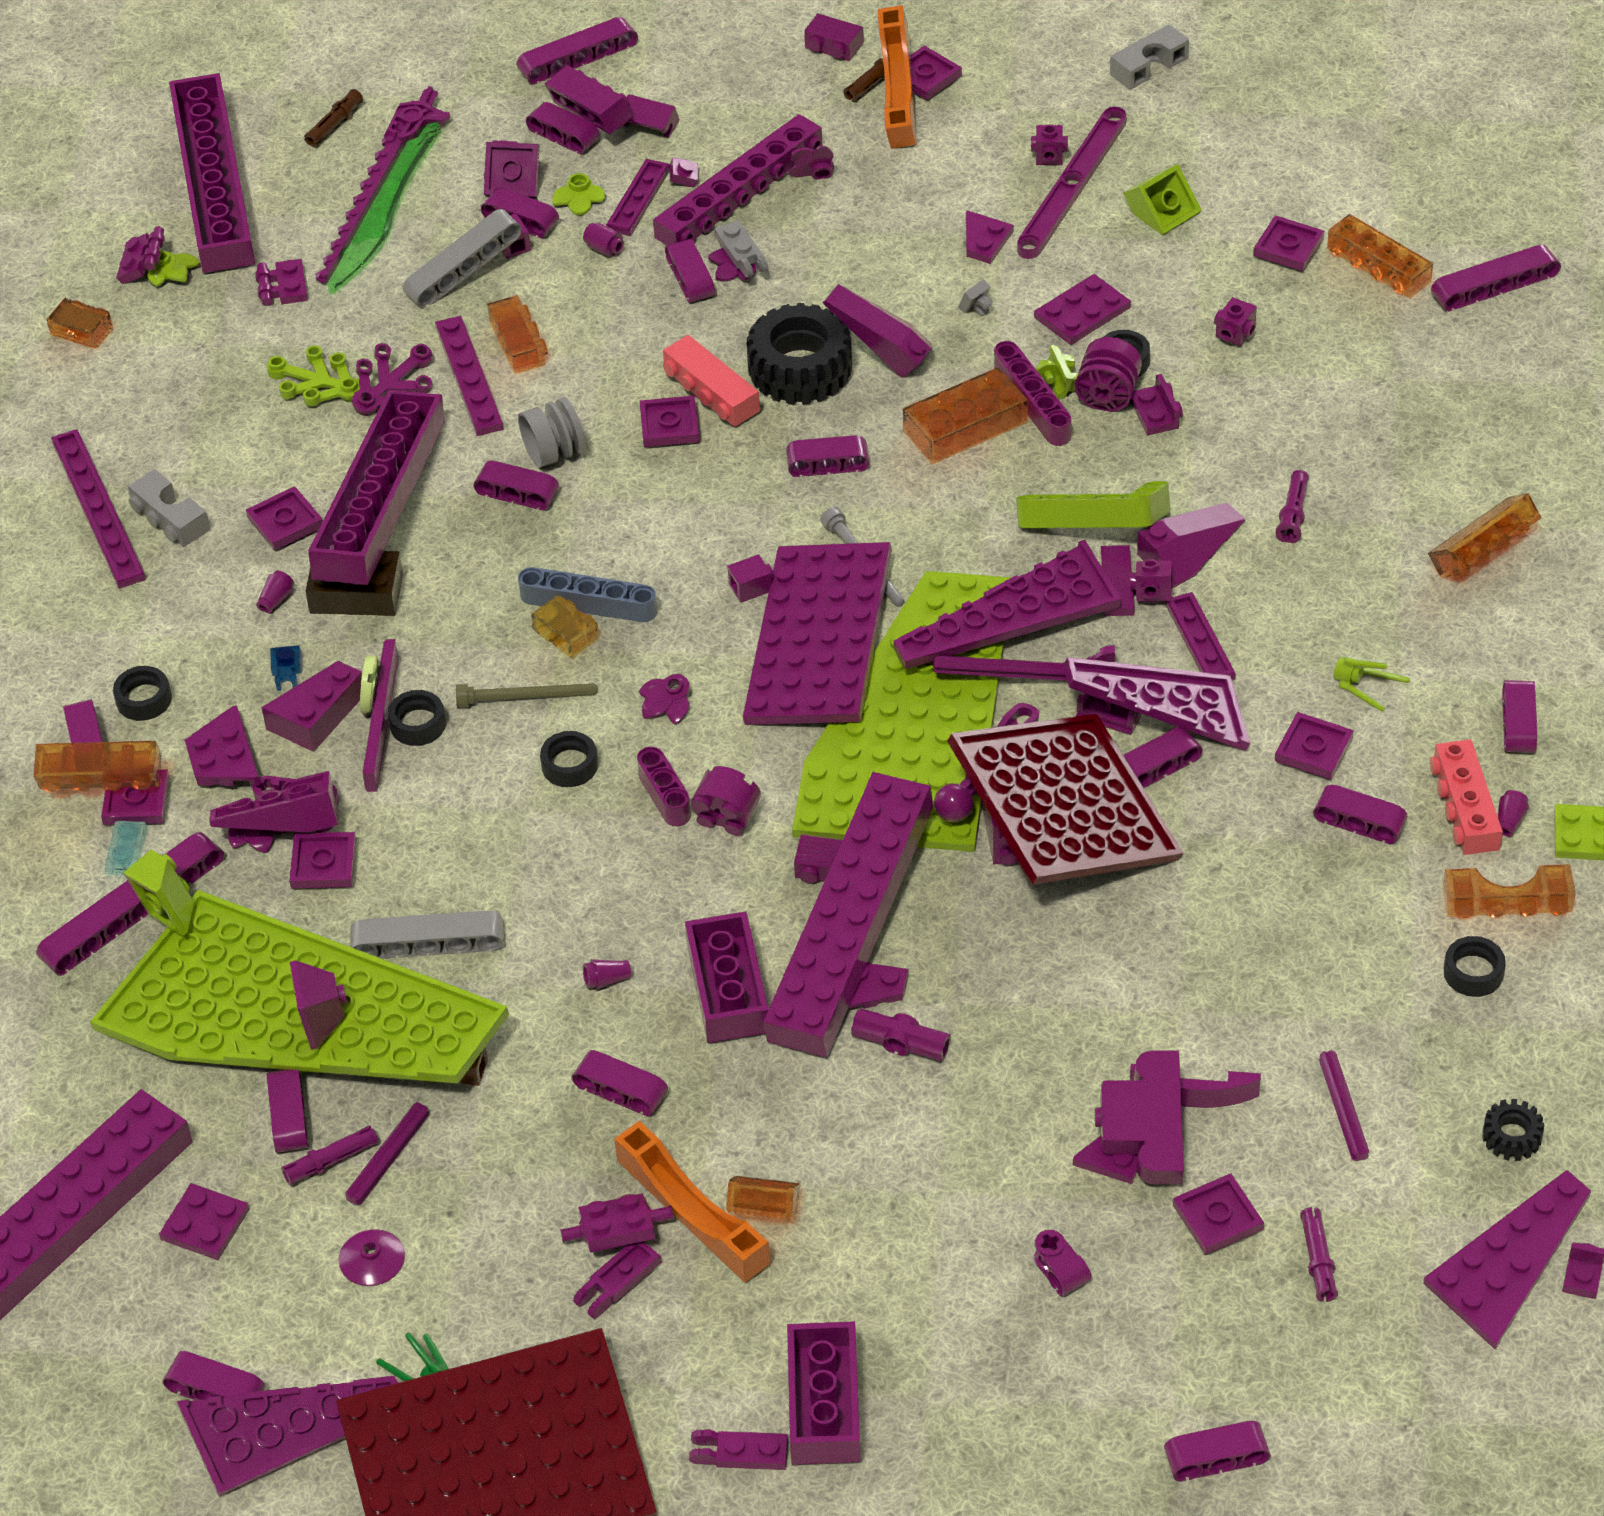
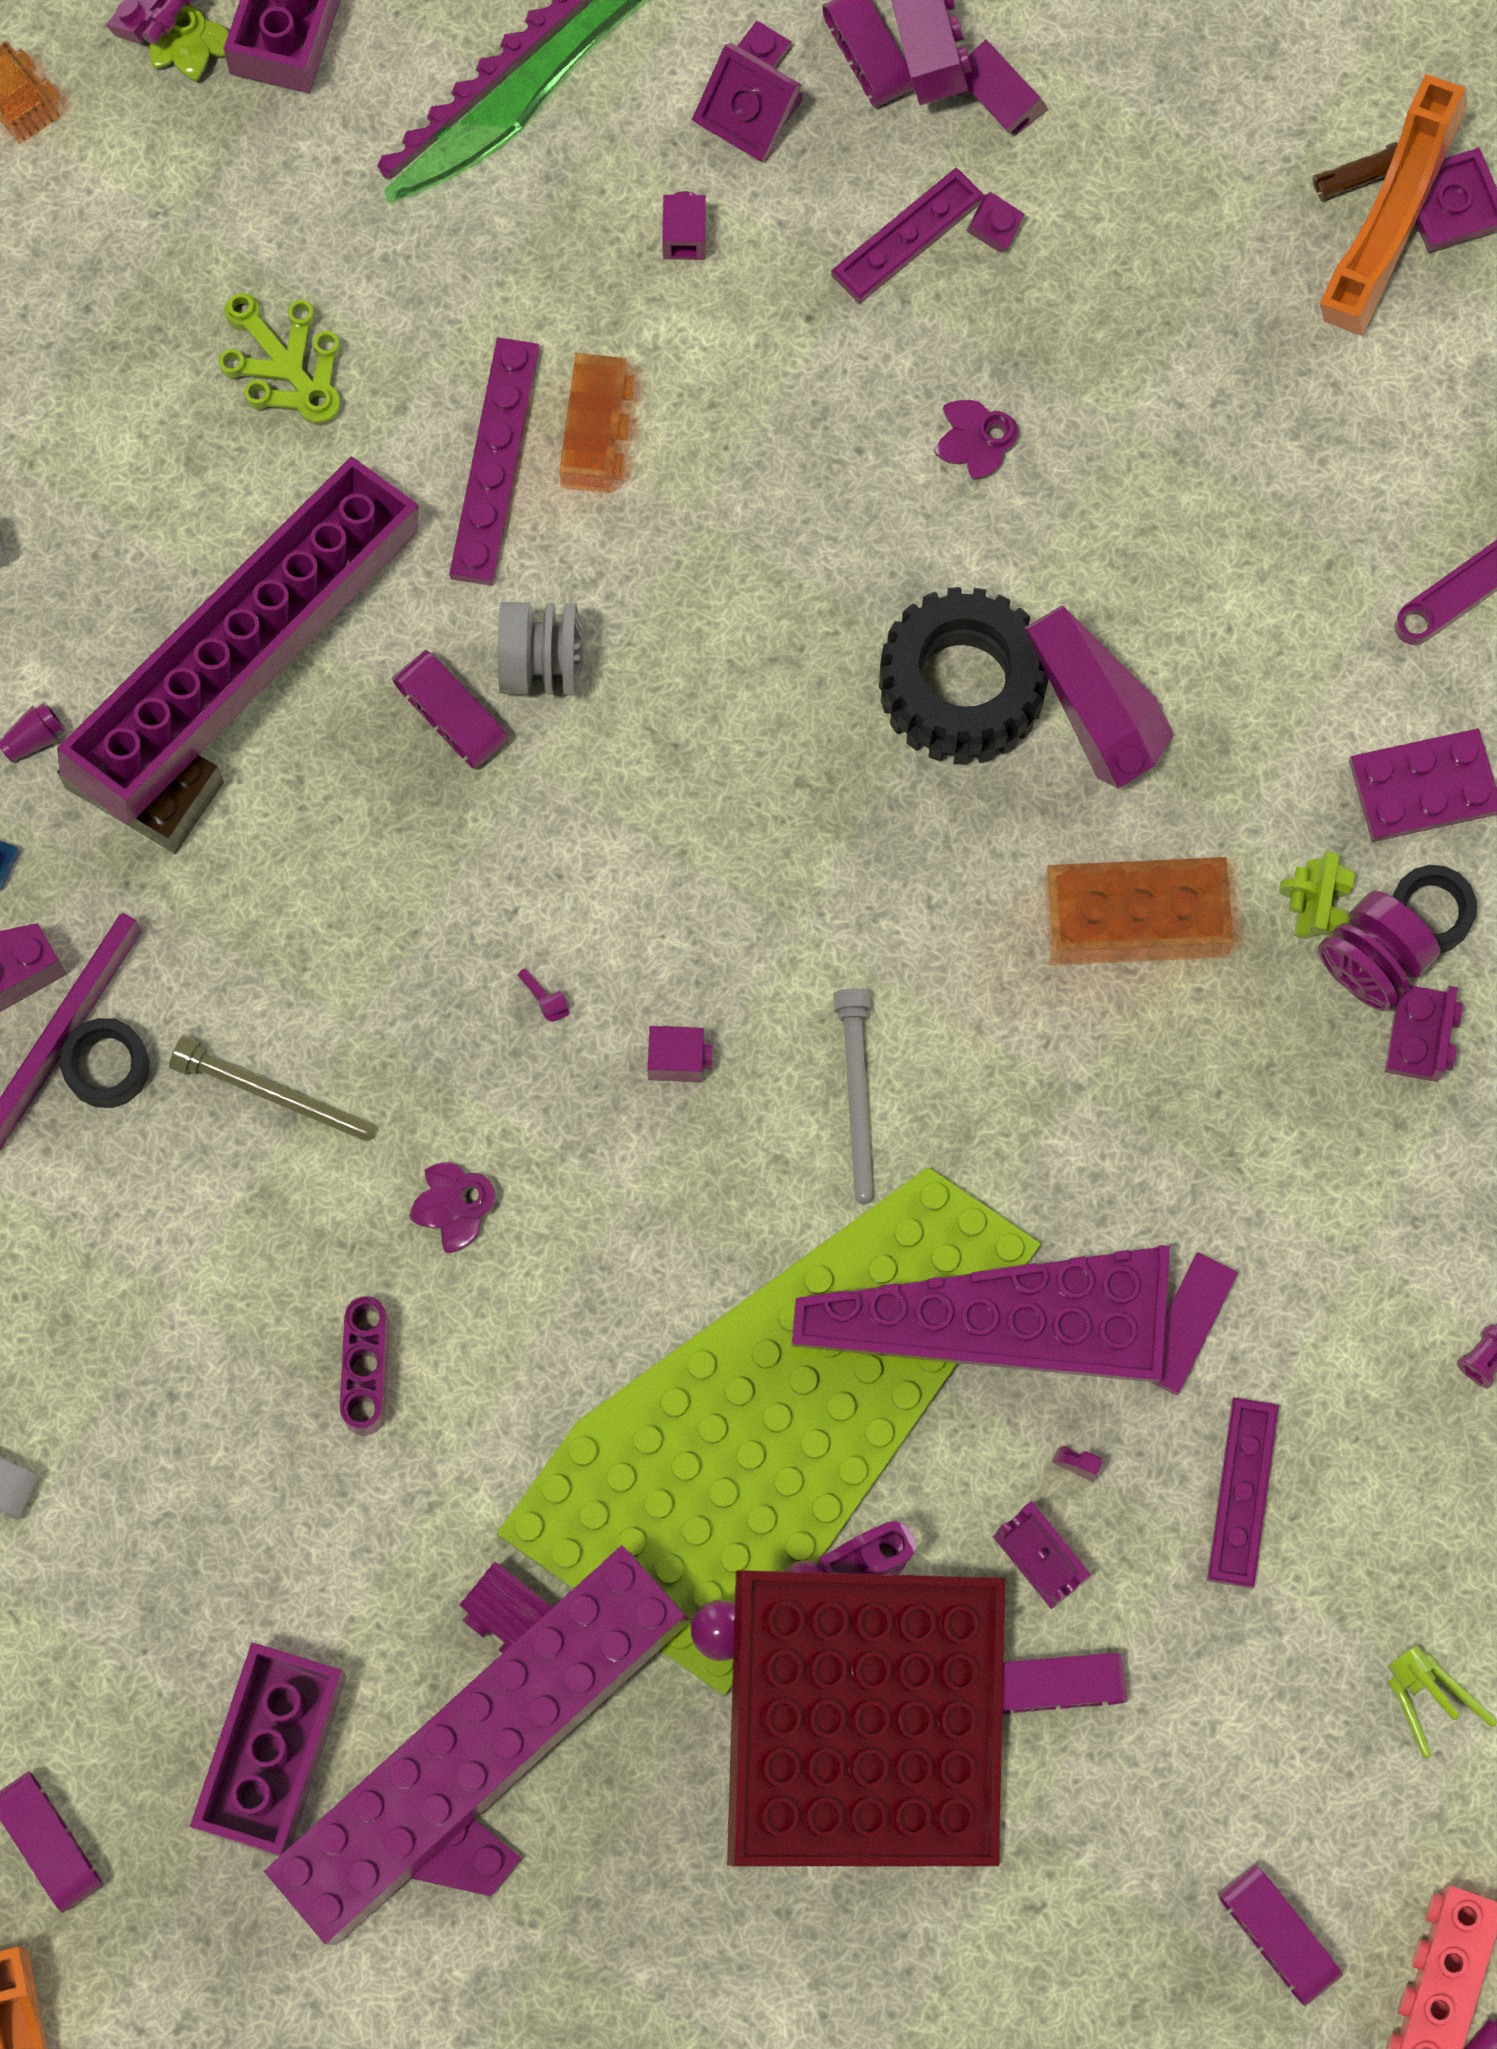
camera: 25 degrees right, 25 degrees up
(284, 518) = (111, 603): magenta plate -> none
(290, 281) = (339, 155): magenta plate -> none
(369, 683) = (59, 982): yellowish green tile -> none
(389, 381) = (377, 420): magenta plant -> none
(462, 258) = (586, 246): light grey beam -> none
(535, 215) = (728, 192): magenta beam -> none
(565, 626) = (382, 1005): clear yellow brick -> none
(573, 775) = (246, 1218): black tyre -> none
(578, 194) = (822, 194): lime plate -> none
(589, 594) = (433, 946): sand blue beam -> none
(603, 239) = (811, 300): magenta brick -> none
(605, 972) = (124, 1643): magenta cone -> none
(662, 589) = (553, 1005): none -> magenta hand
(669, 421) = (722, 697): magenta plate -> none
(690, 270) = (901, 423): magenta beam -> none
(711, 380) = (814, 658): coral brick -> none
(725, 800) = (425, 1446): magenta brick -> none
(736, 182) = (1195, 229): magenta brick -> none
(740, 248) = (990, 423): light grey hinge -> none
(812, 162) = (1192, 313): magenta plate -> none
(818, 634) = (716, 1205): magenta plate -> none
(827, 455) = (905, 880): magenta beam -> none
(833, 37) = (1355, 61): magenta brick -> none
(900, 1034) = (449, 1966): magenta piece -> none
(976, 299) = (1279, 692): light grey tile -> none
(985, 236) = (1363, 570): magenta wing -> none
(999, 667) = (954, 1426): magenta axle -> none
(1043, 405) = (1263, 896): magenta beam -> none
(1131, 510) = (1216, 1208): lime beam -> none
(1152, 581) = (1227, 1365): magenta brick -> none
(1179, 697) = (1138, 1606): magenta wing -> none
(1189, 539) = (1323, 1311): magenta wedge -> none
(1314, 745) = (1288, 1776): magenta plate -> none

